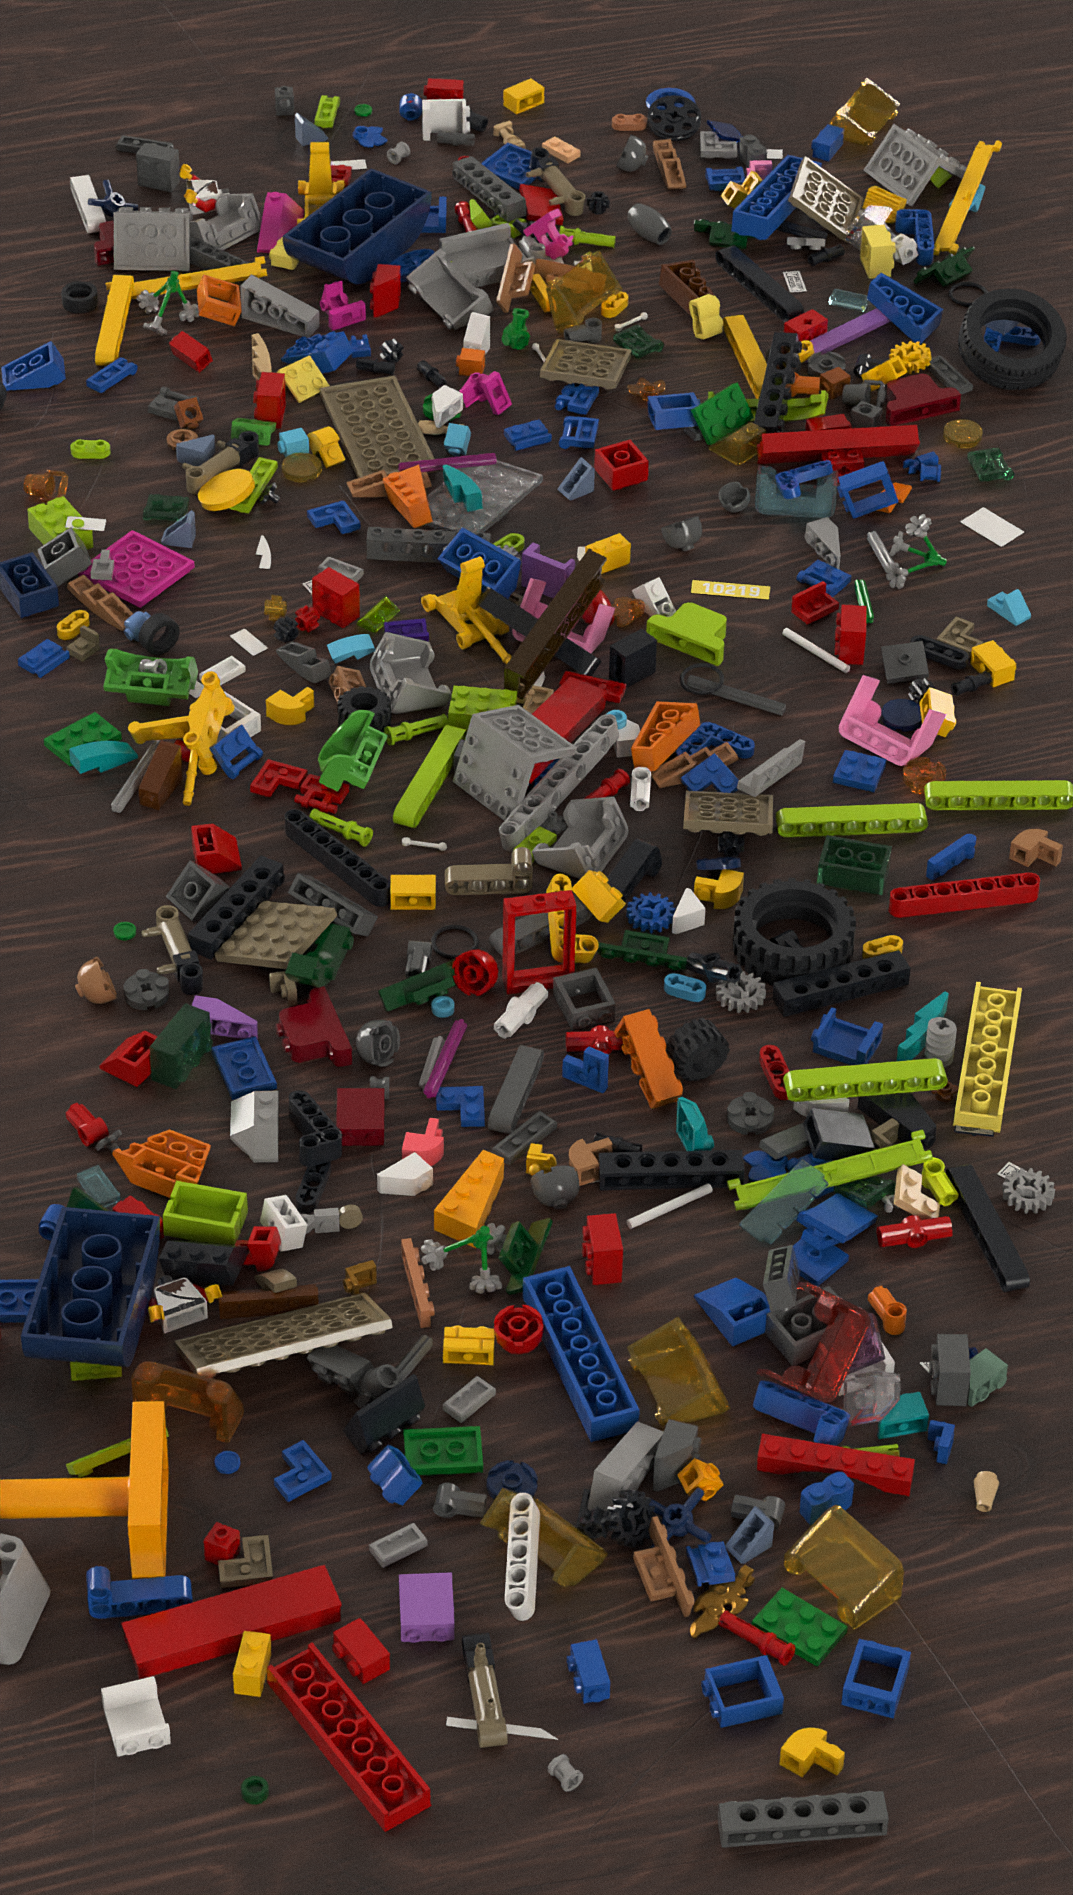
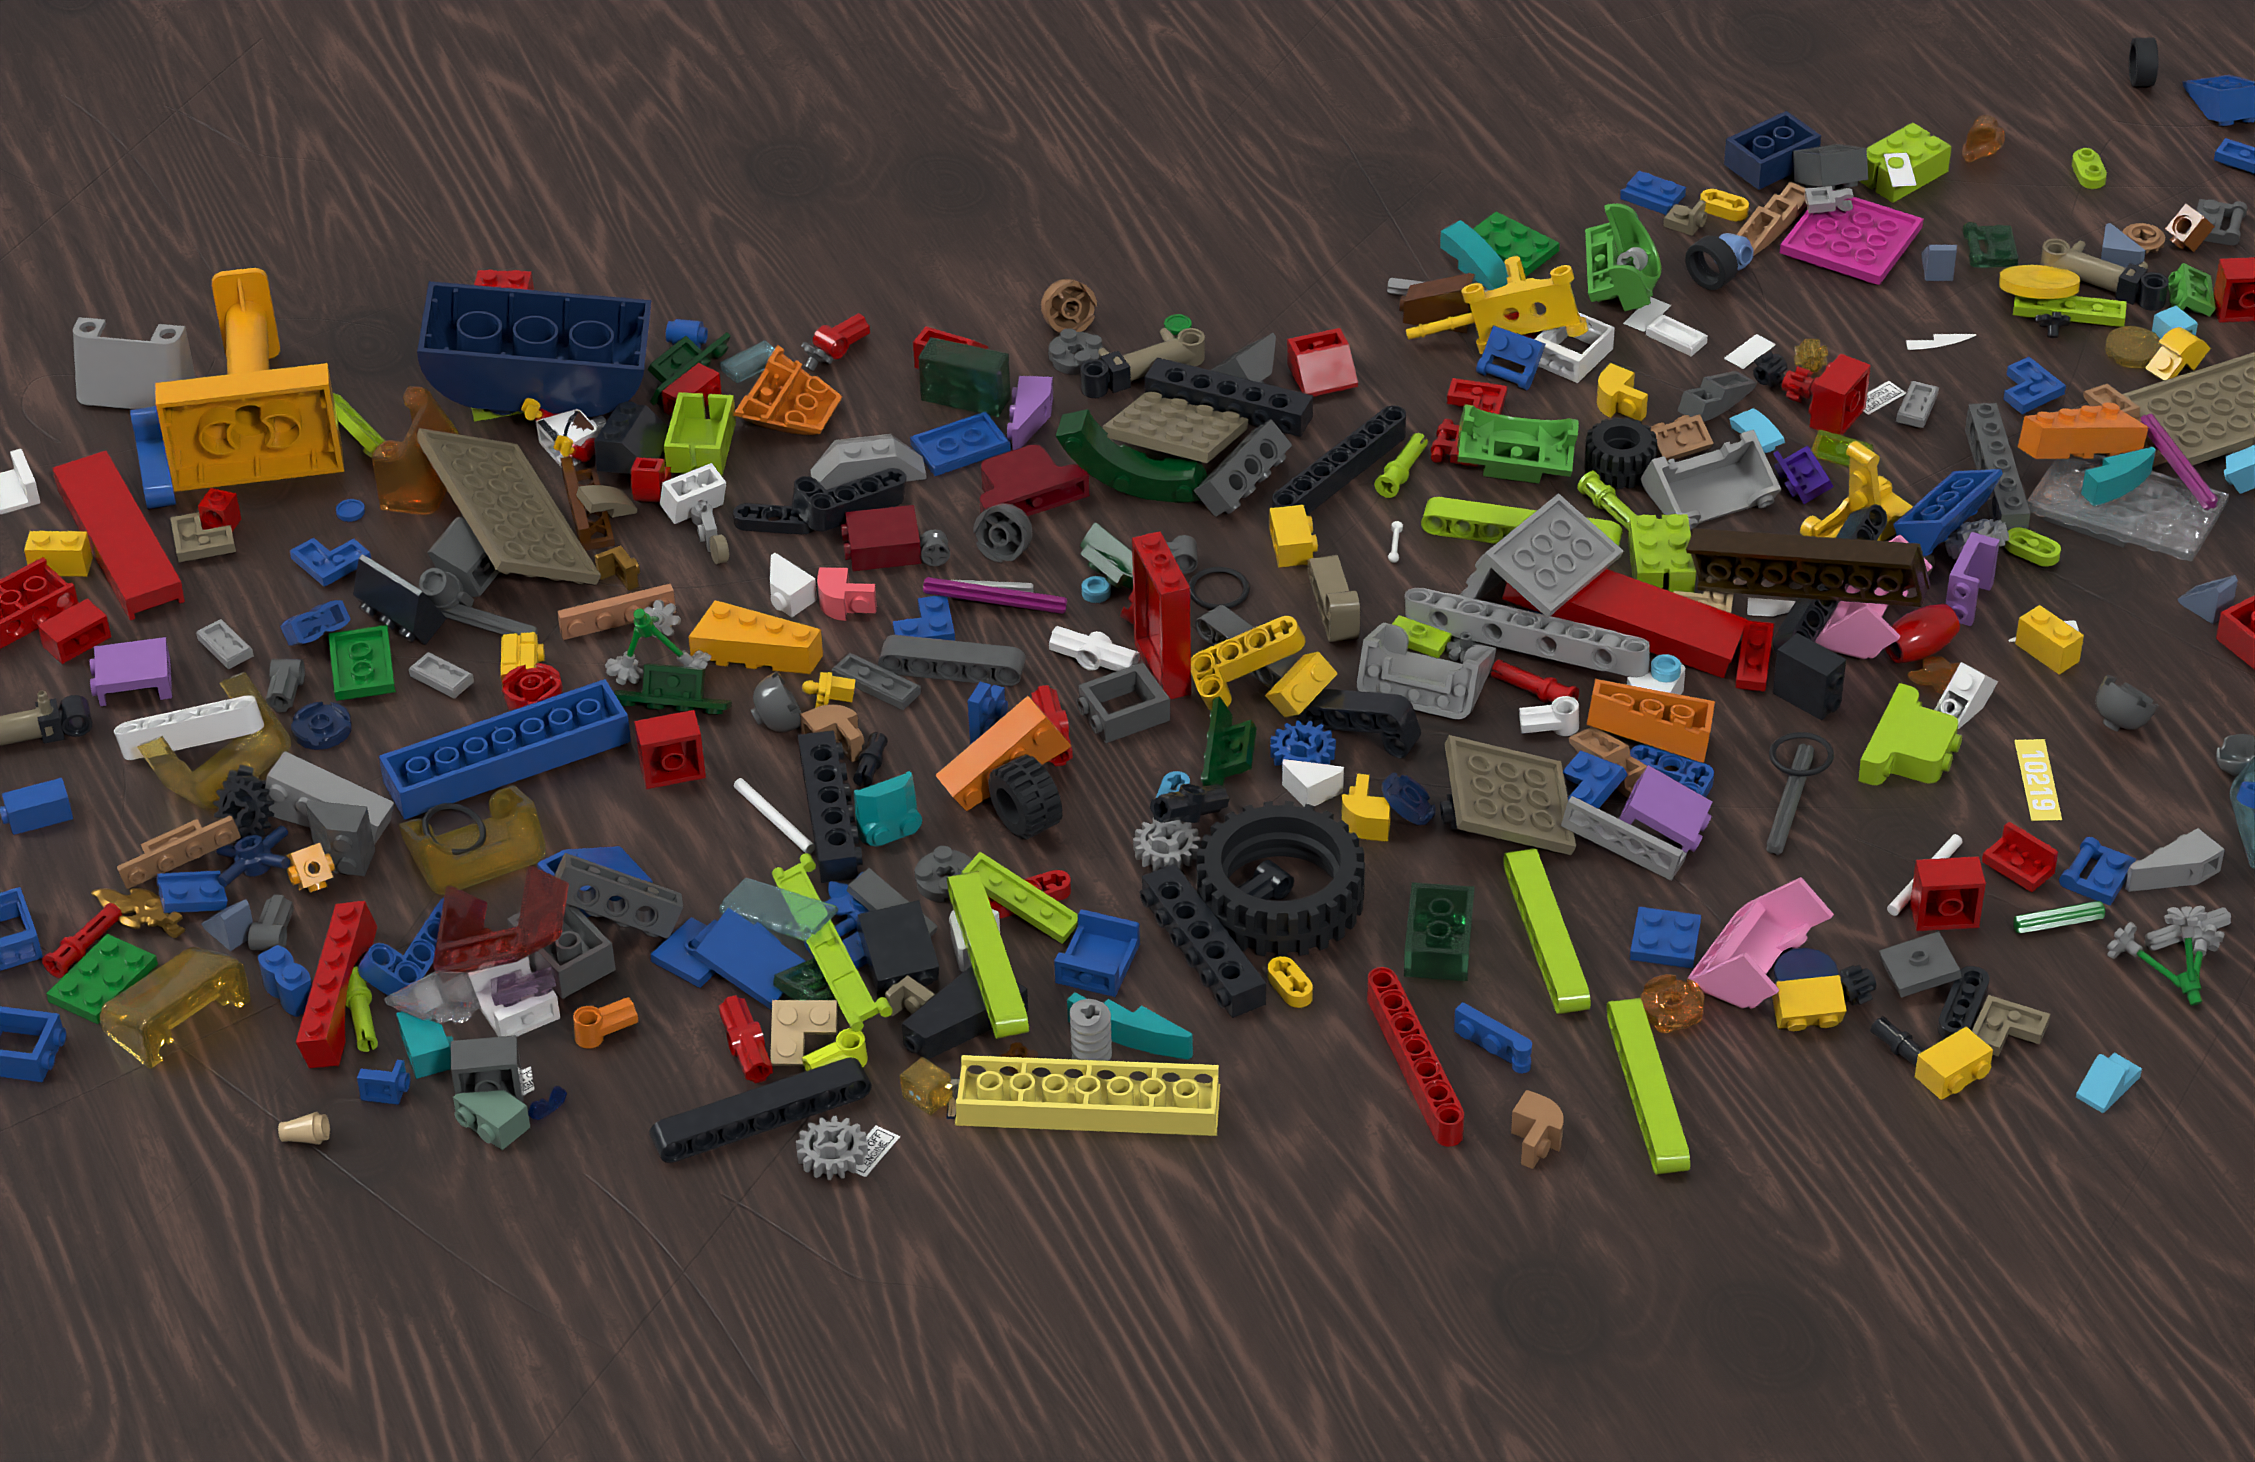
camera: 85 degrees right, 0 degrees up
(666, 1378) = (425, 824): none -> black tyre
(753, 744) = (1668, 808): none -> medium lavender panel
(807, 1057) = (1024, 898): none -> lime plate
(973, 1136) = (926, 1086): none -> clear yellow brick

